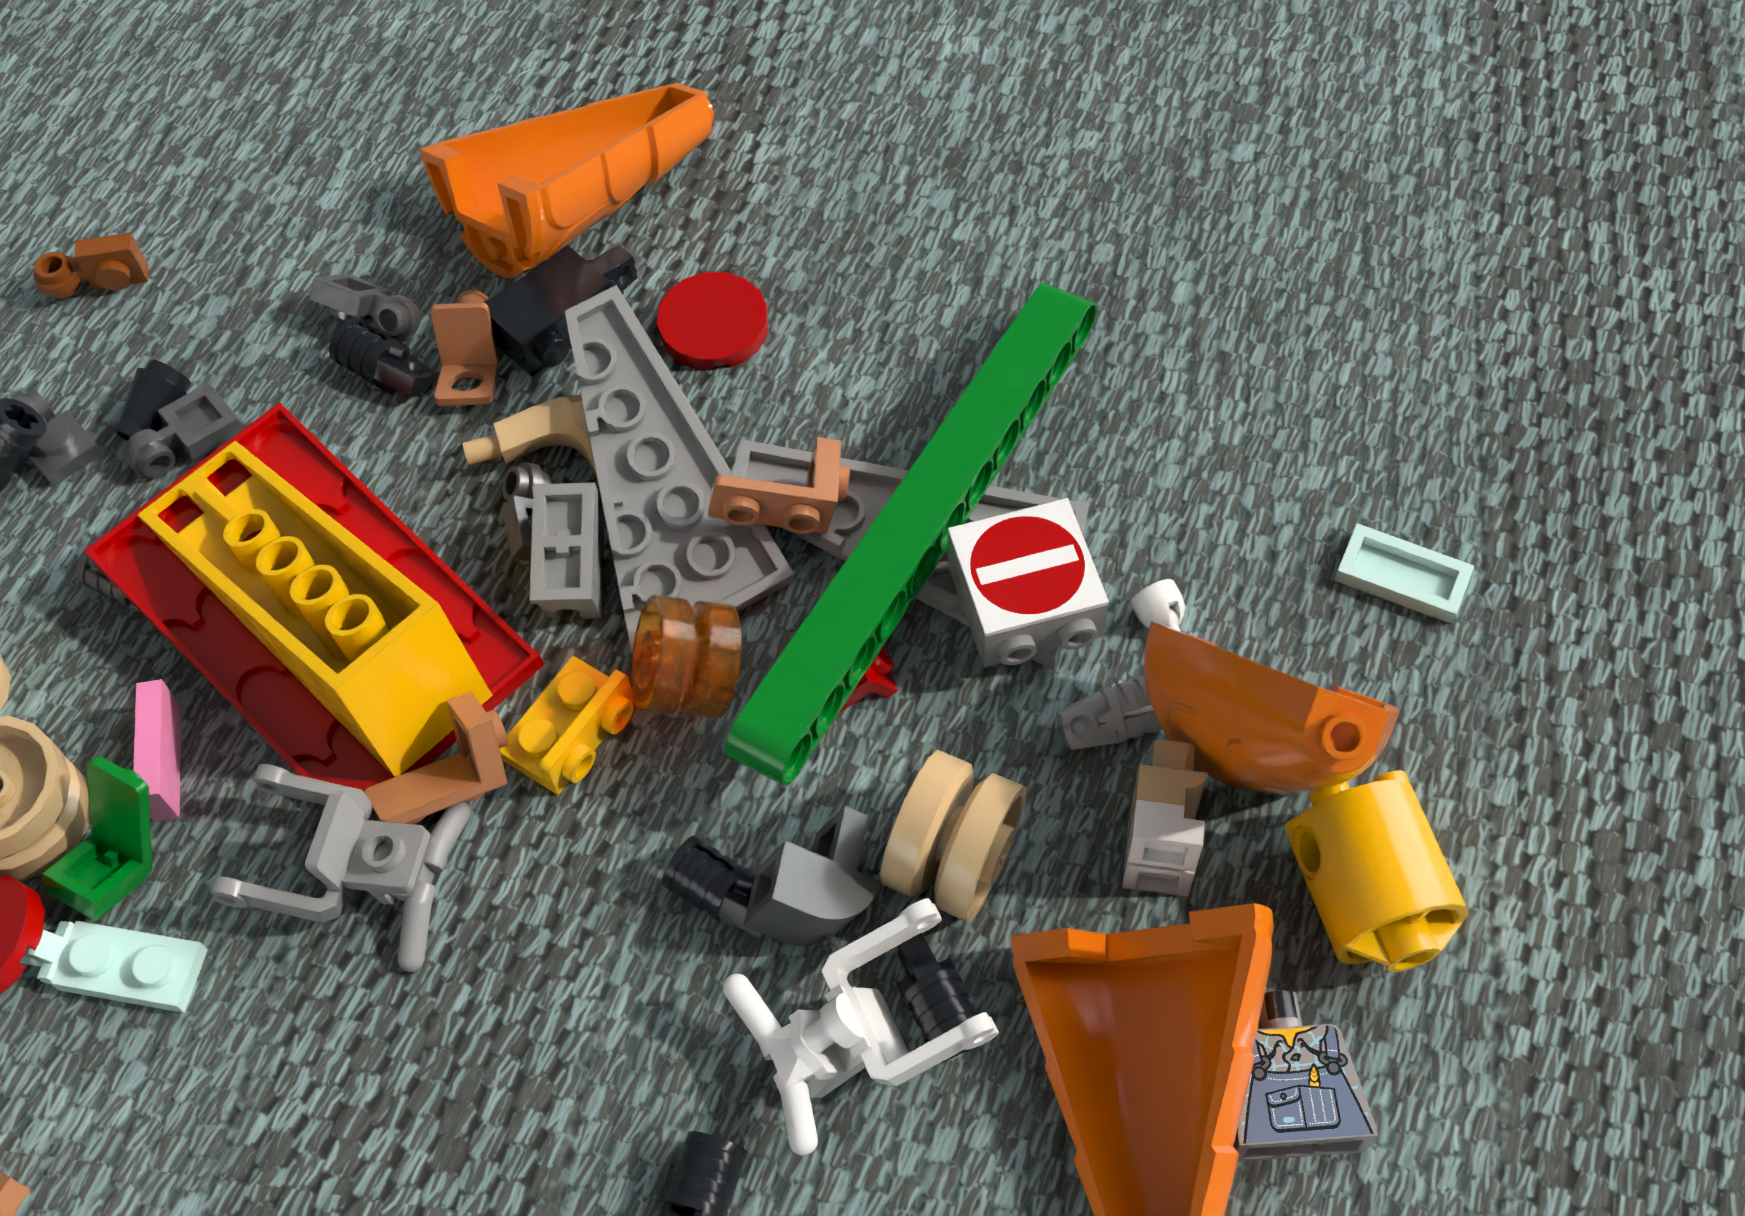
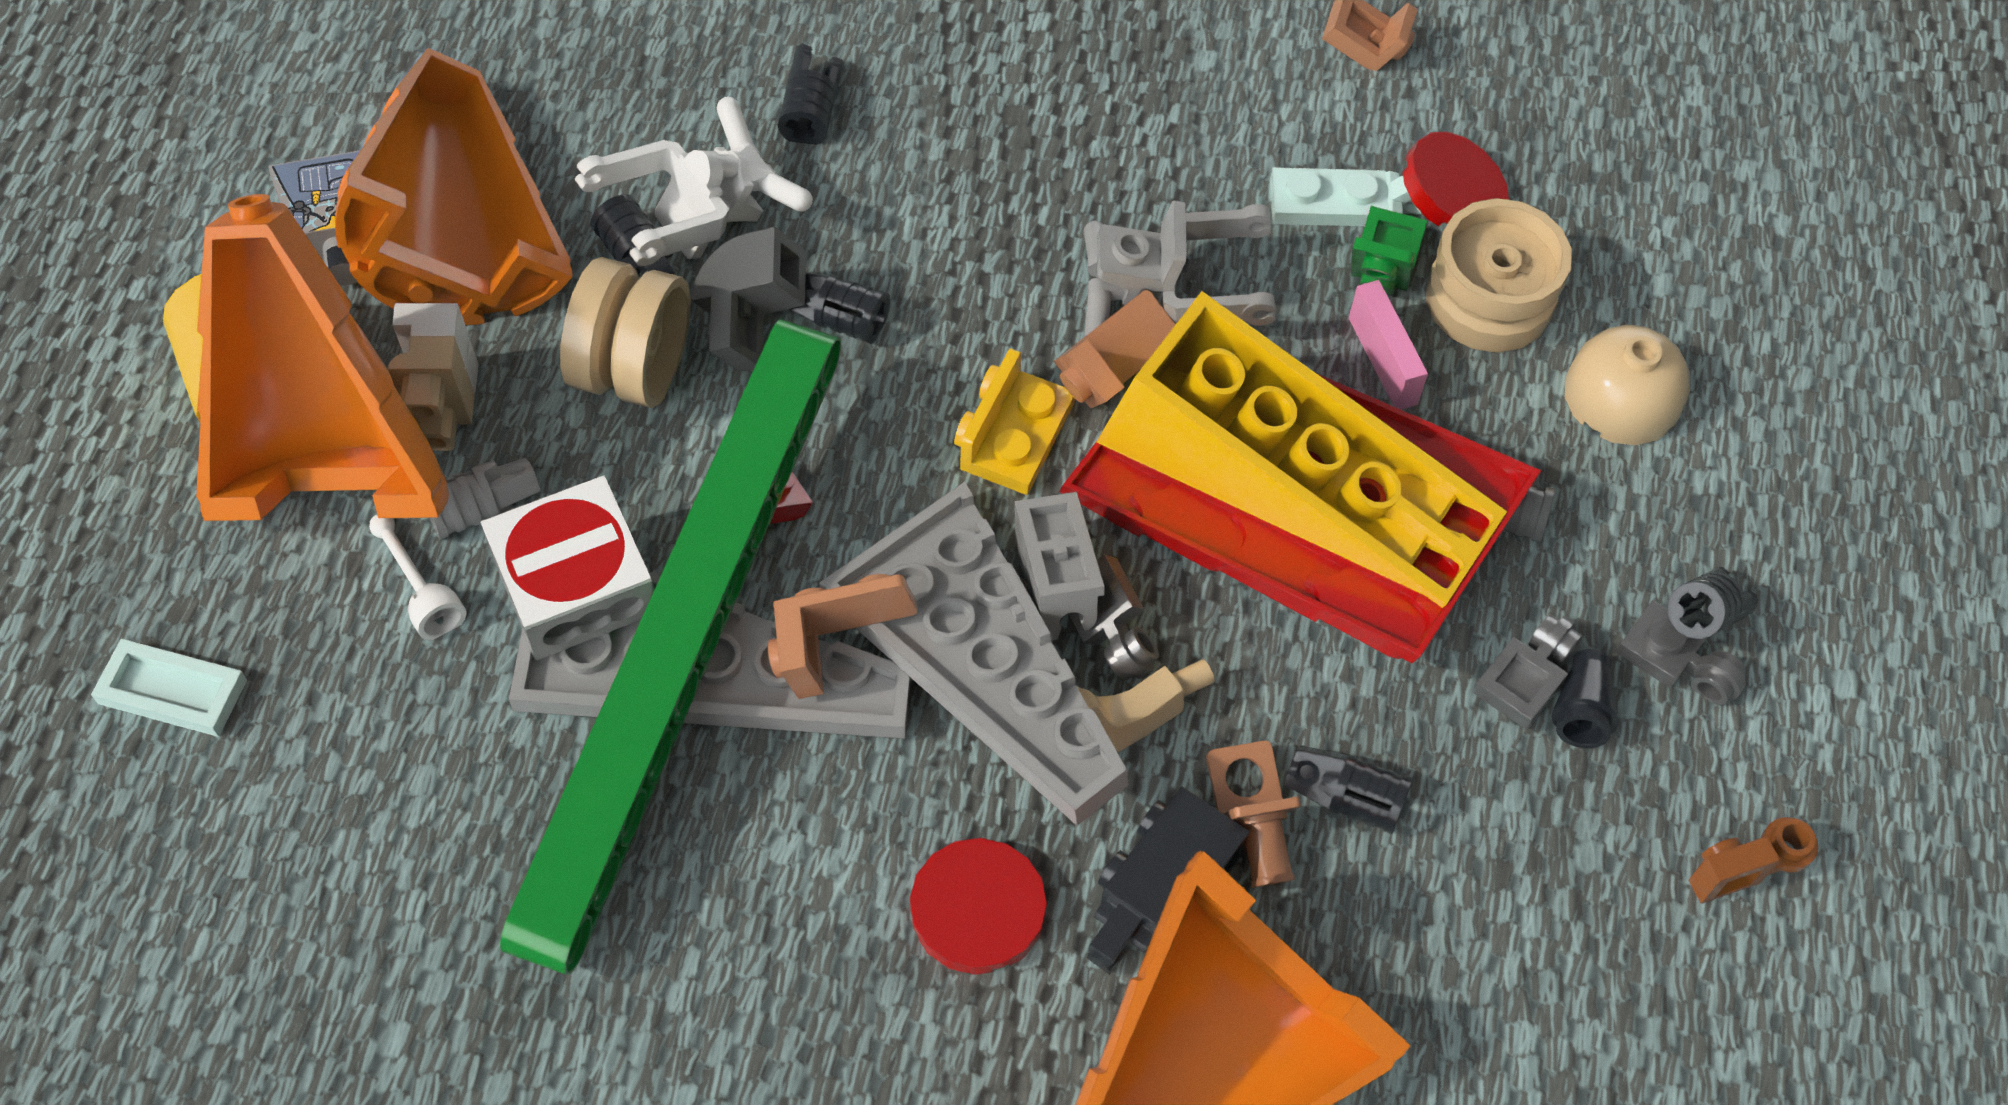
camera: 165 degrees right, 0 degrees up
(356, 297) = (1417, 864): flat silver plate -> none
(685, 657) = (905, 456): clear orange wheel -> none

